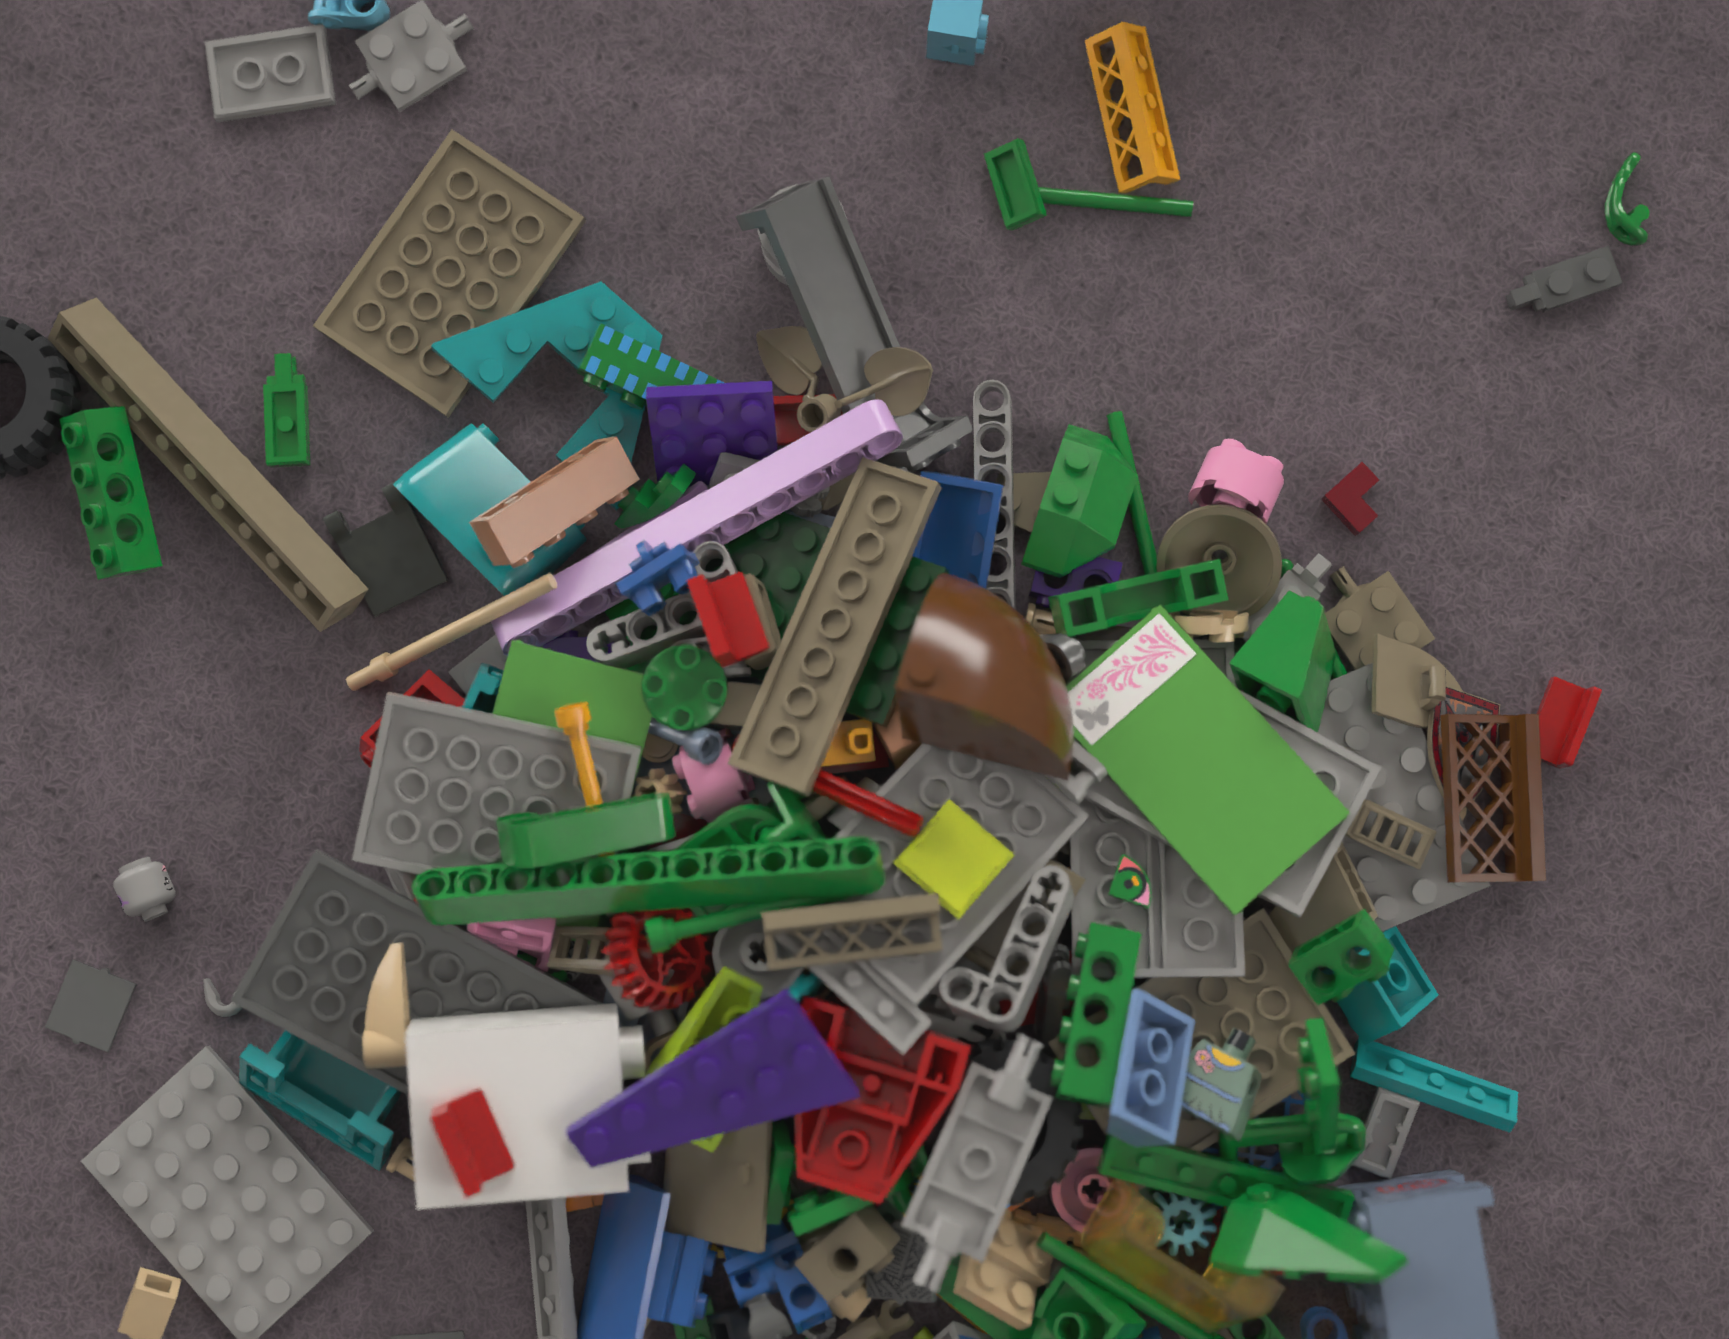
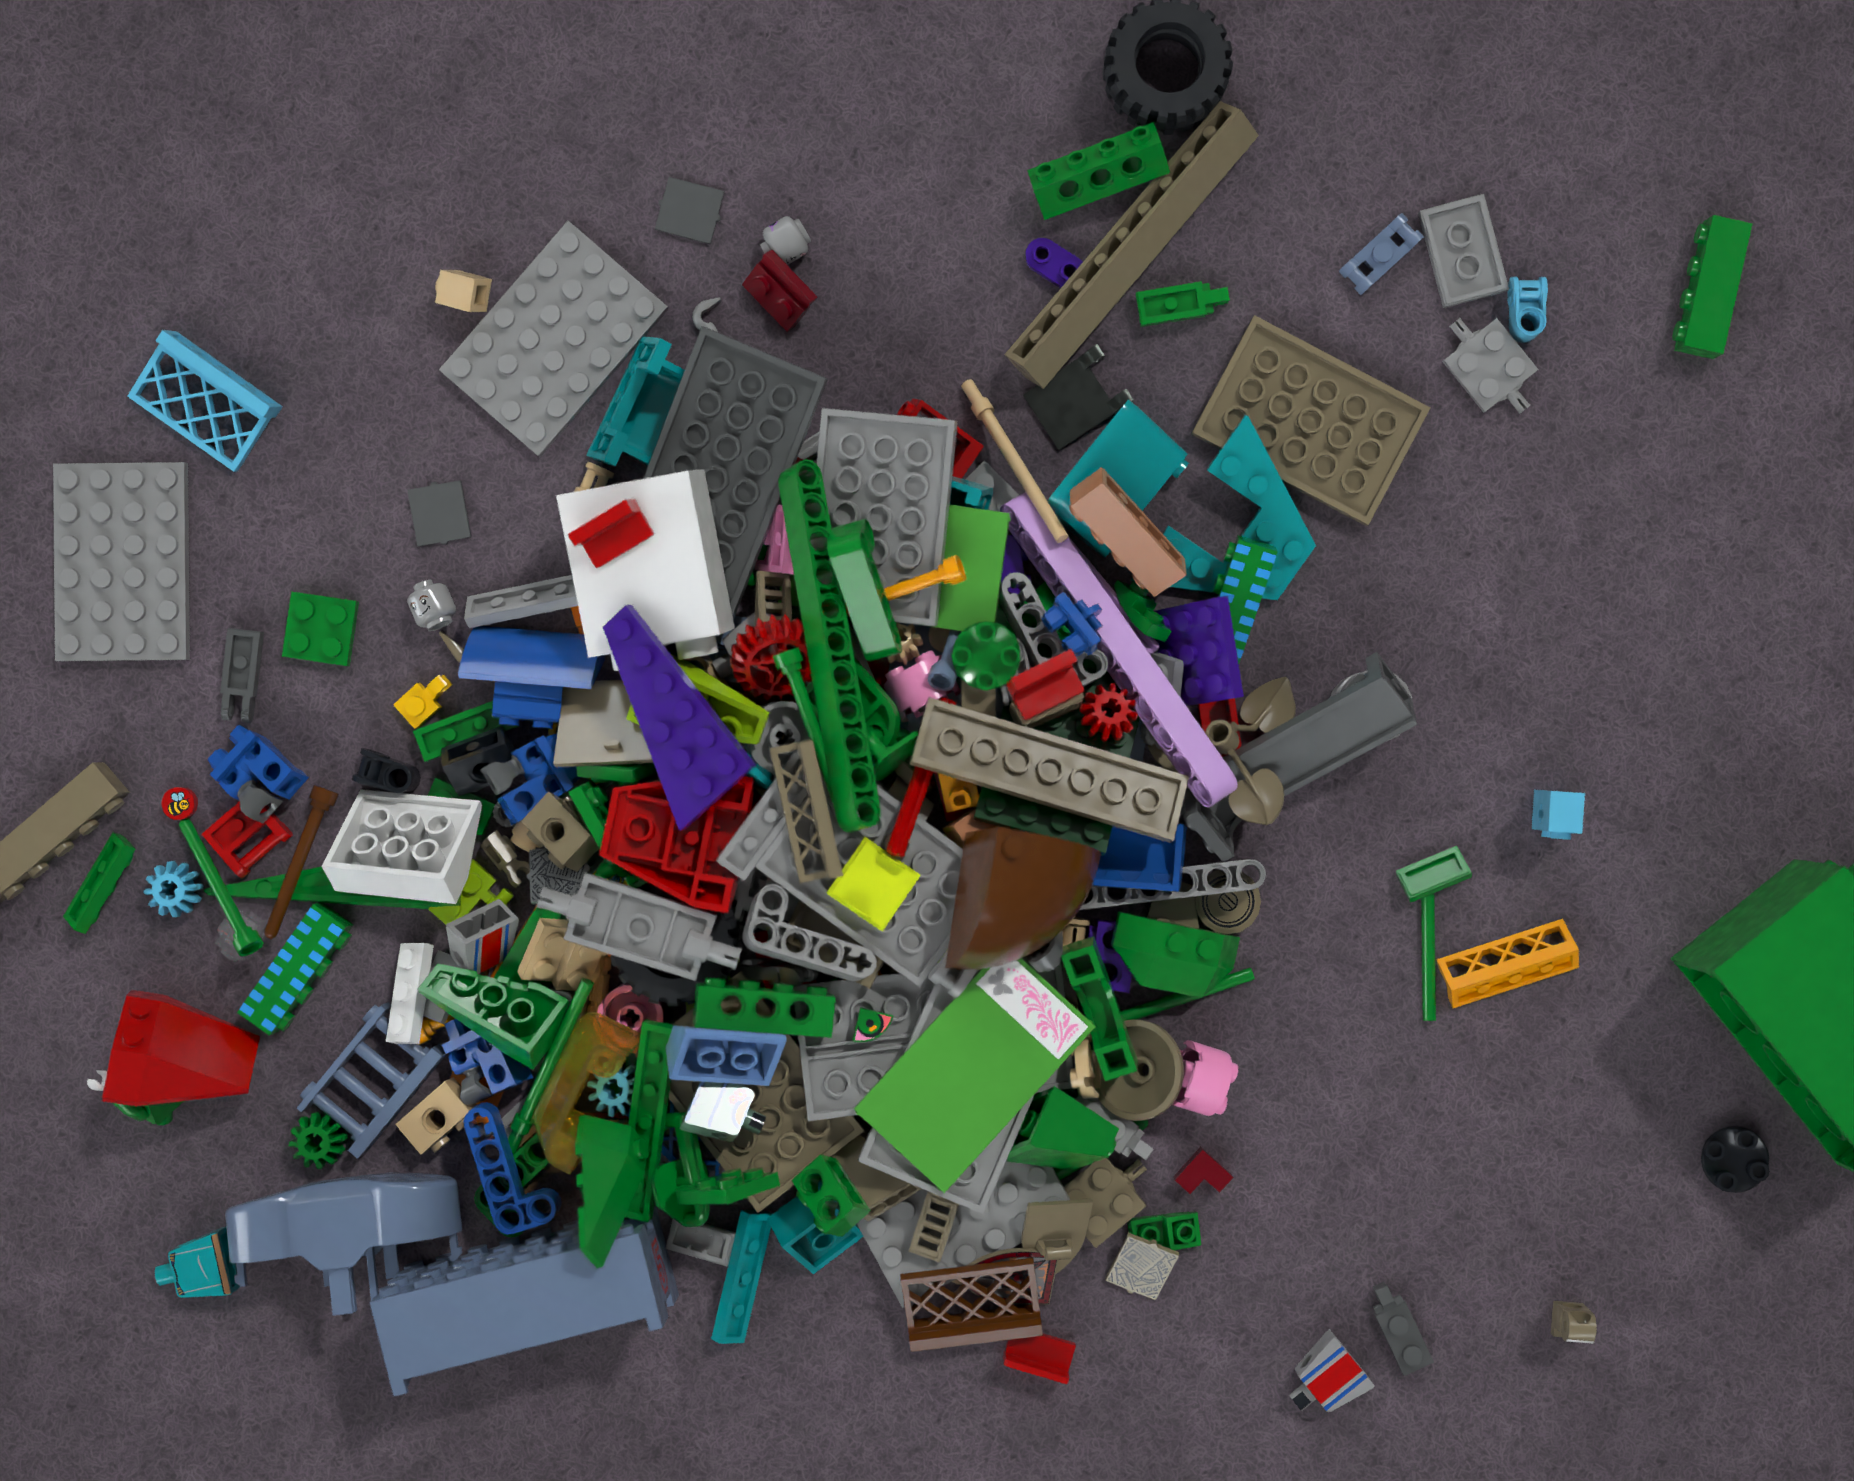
camera: 80 degrees right, 5 degrees up
(204, 902) = (779, 290): none -> dark red plate
(222, 564) = (1053, 266): none -> dark purple plate
(260, 169) = (1381, 254): none -> sand blue plate
(387, 1013) = (705, 451): tan piece -> none
(760, 538) = (1120, 707): none -> red gear
(1035, 432) = (1228, 911): none -> dark tan tile
(1422, 553) = (1170, 1230): none -> green slope
(1462, 584) = (1142, 1266): none -> dark tan piece
(1573, 74) = (1573, 1322): none -> dark tan leg
(1615, 371) = (1329, 1376): none -> torso
(1625, 225) = (1452, 1373): green piece -> none

